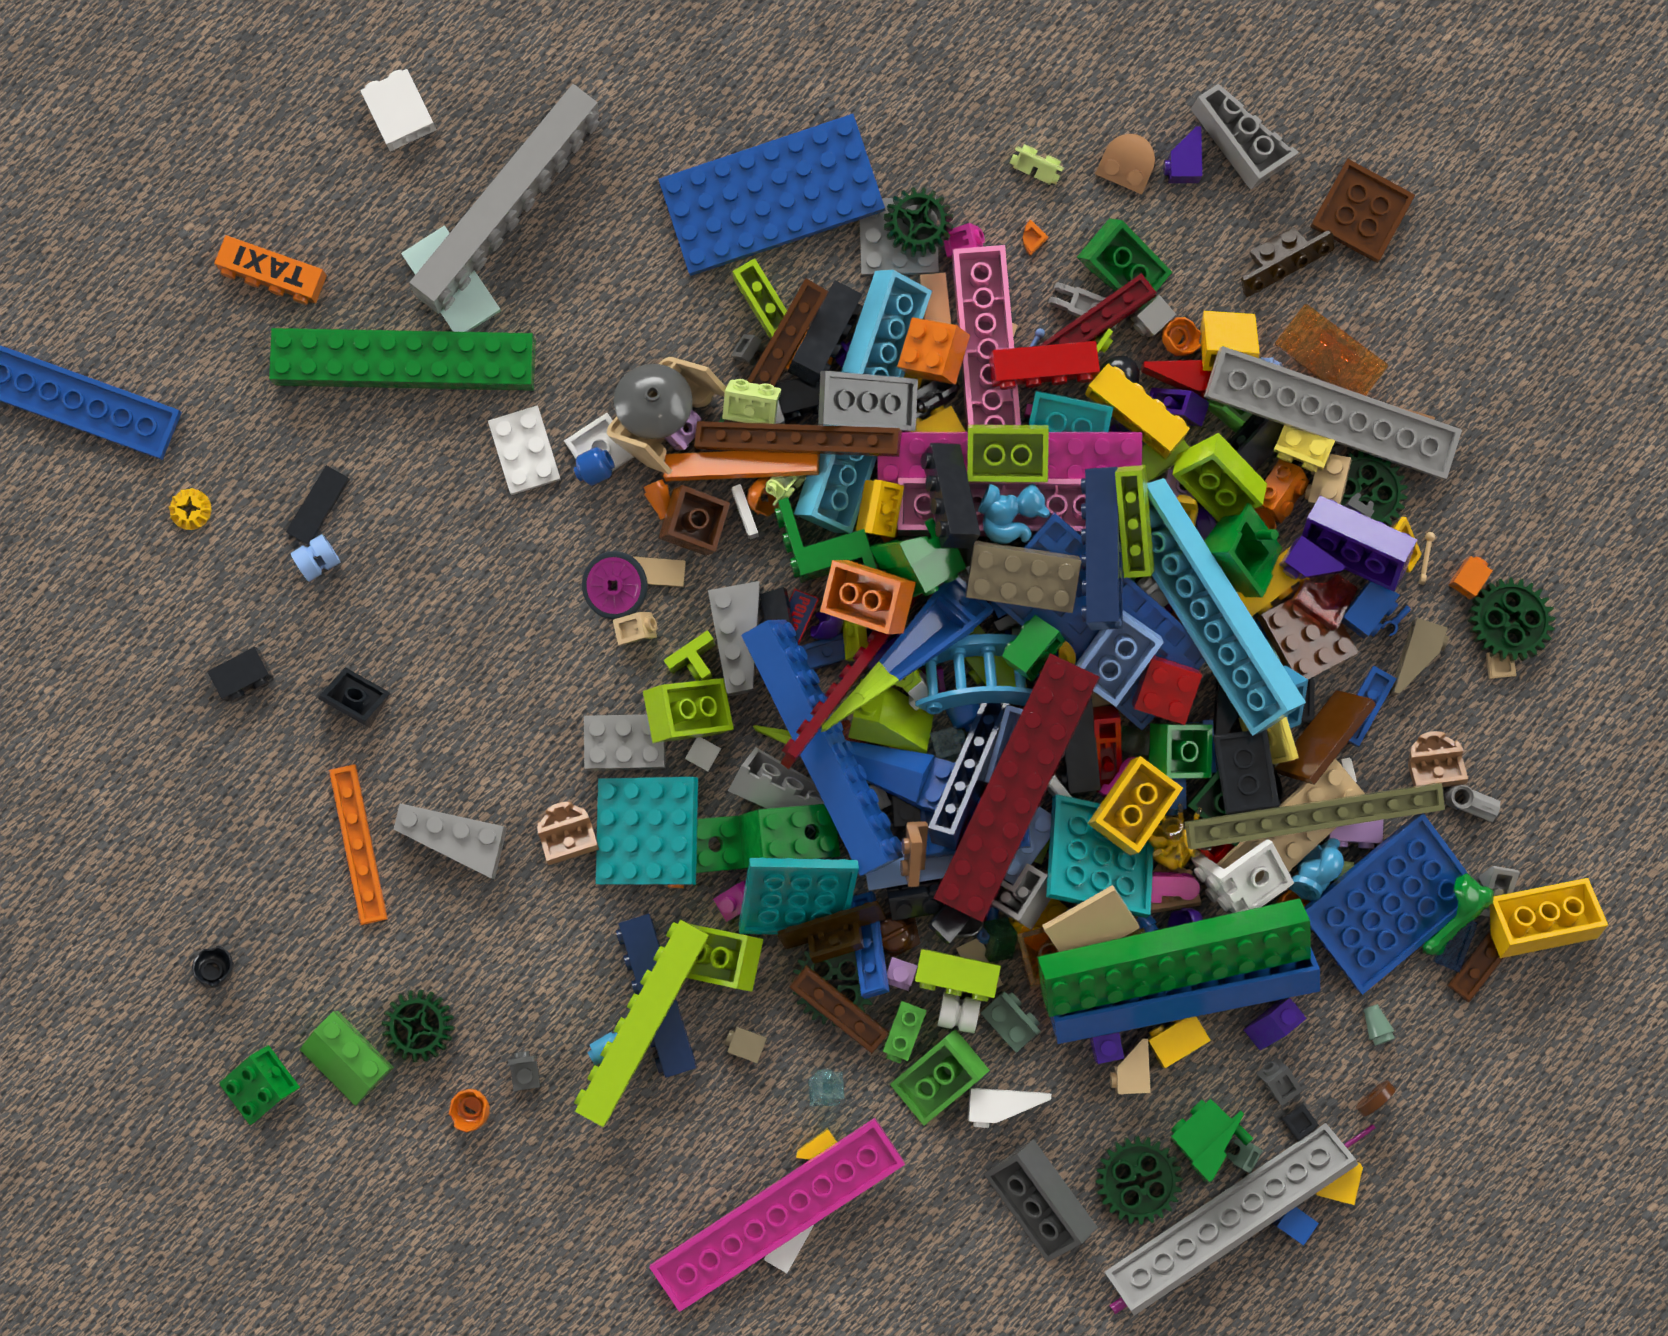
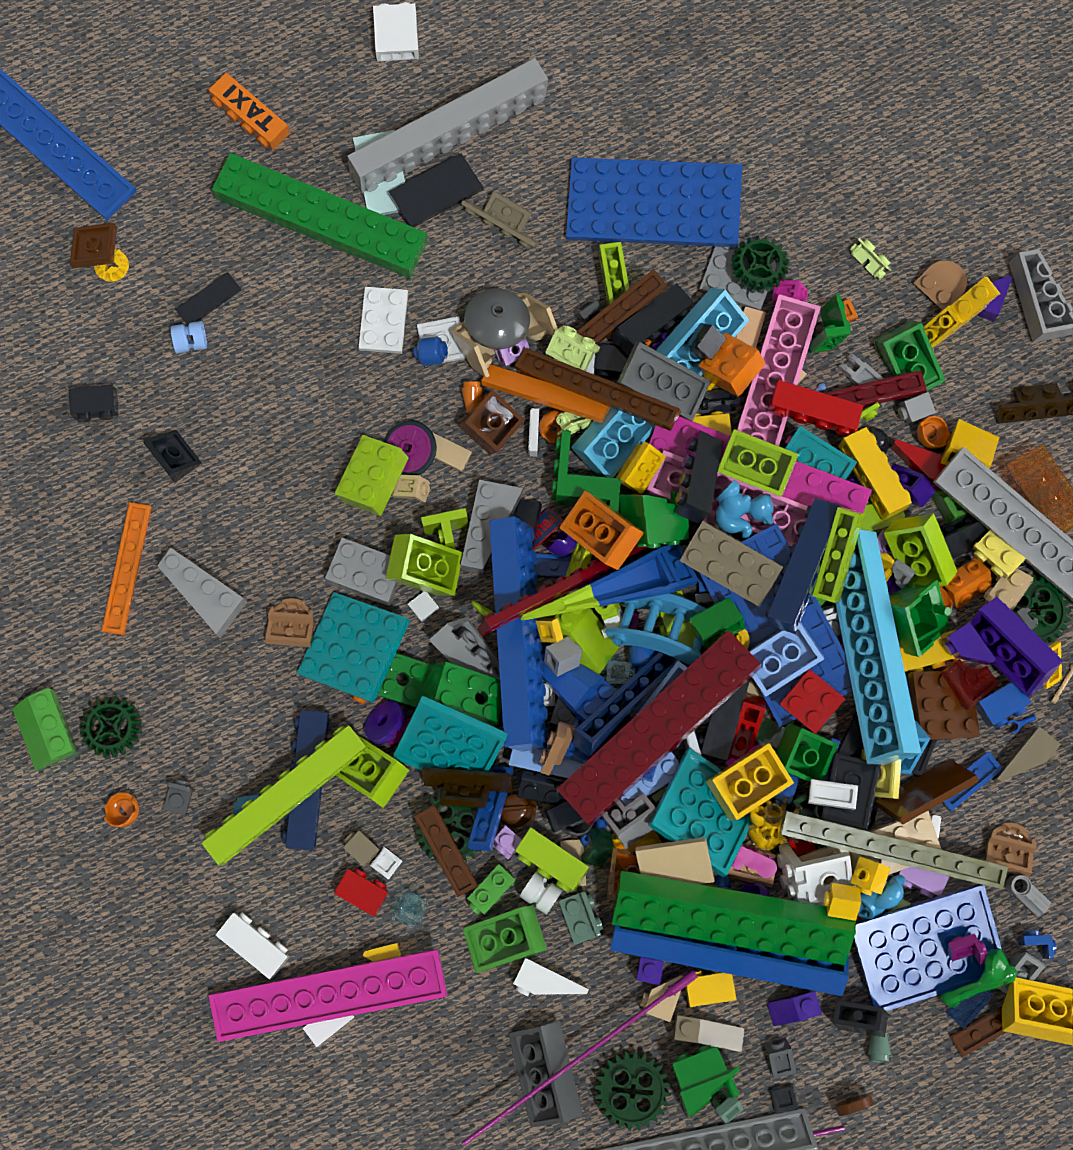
camera: 25 degrees right, 5 degrees down
(161, 495) = (93, 245): none -> reddish brown tile
(521, 278) = (435, 190): none -> black tile
(586, 632) = (371, 475): none -> lime brick
(610, 276) = (506, 215): none -> dark tan bracket
(674, 1194) = (253, 944): none -> white brick
(704, 905) = (394, 717): none -> dark purple tile
(766, 1090) = (361, 892): none -> red brick
(779, 1048) = (386, 863): none -> white tile
(855, 728) = (549, 629): none -> yellow plate
(880, 750) = (562, 656): none -> light grey brick
(895, 337) = (705, 341): none -> black brick
(1029, 259) = (835, 328): none -> green bracket
(1139, 1059) = (672, 990): none -> magenta piece
(1159, 189) = (961, 311): none -> yellow slope
(1194, 1088) = (705, 1032): none -> slope
(1209, 510) = (902, 573): none -> light grey tile
(1228, 782) = (833, 794): none -> white tile
(1283, 893) = (842, 901): none -> yellow brick
(1301, 855) = (870, 876): none -> yellow brick
(1348, 1006) = (860, 1018): none -> black brick
(1425, 888) = (966, 946): none -> magenta bracket
(1497, 846) = (1035, 938): none -> blue bracket

